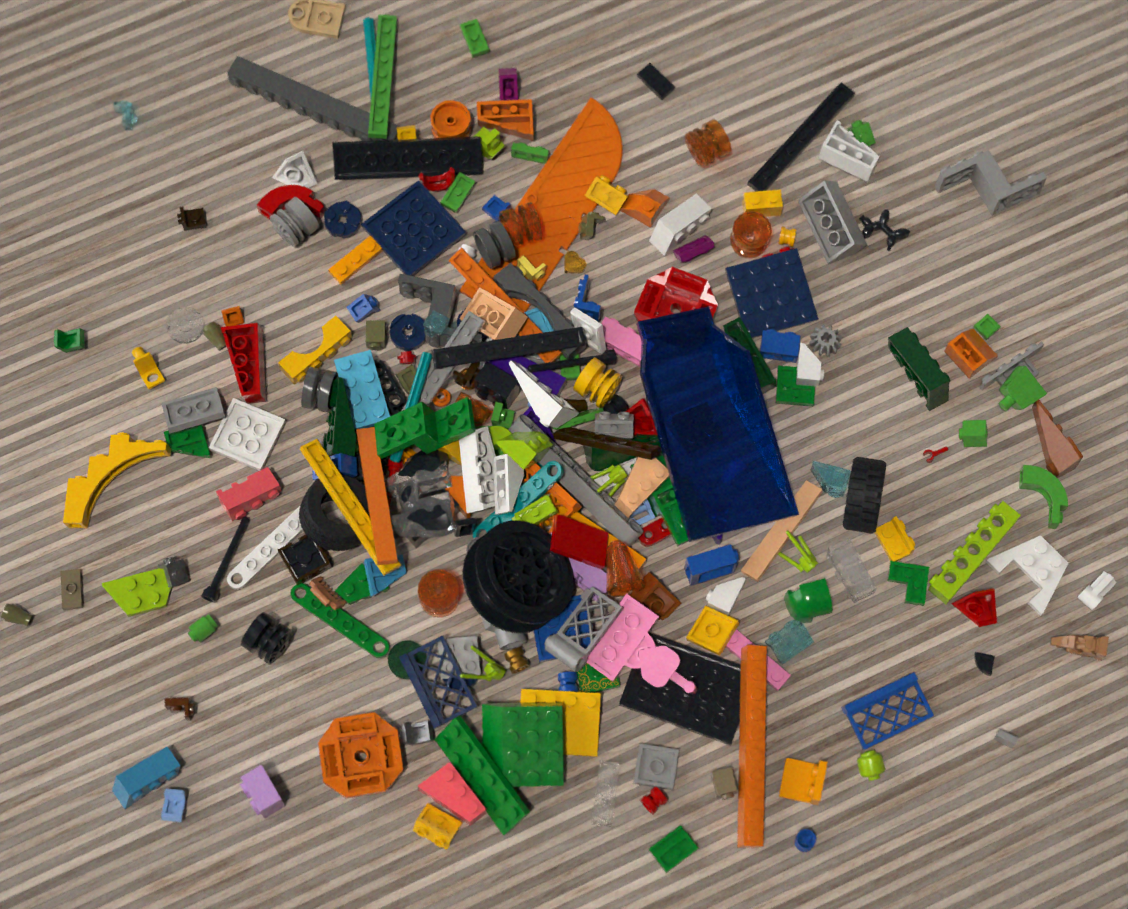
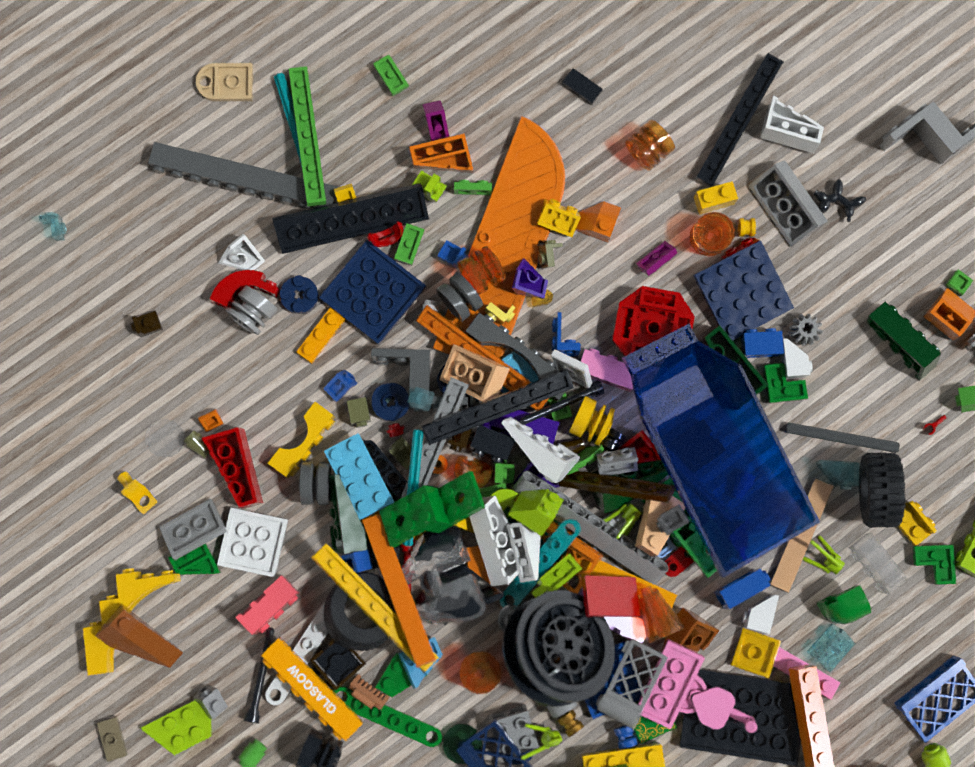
camera: 15 degrees left, 10 degrees up
(69, 340) = (50, 479): green bracket -> none
(115, 495) = (134, 636): none -> dark orange wedge
(273, 575) = (312, 688): none -> light orange brick
(450, 120) = (386, 162): orange wheel -> none
(564, 246) = (529, 281): none -> dark purple slope
(652, 479) = (672, 520): none -> flat silver bracket
(679, 223) = (638, 235): white wedge -> none
(835, 445) = (842, 437): none -> dark grey axle
(862, 132) = (799, 101): bright green bracket -> none

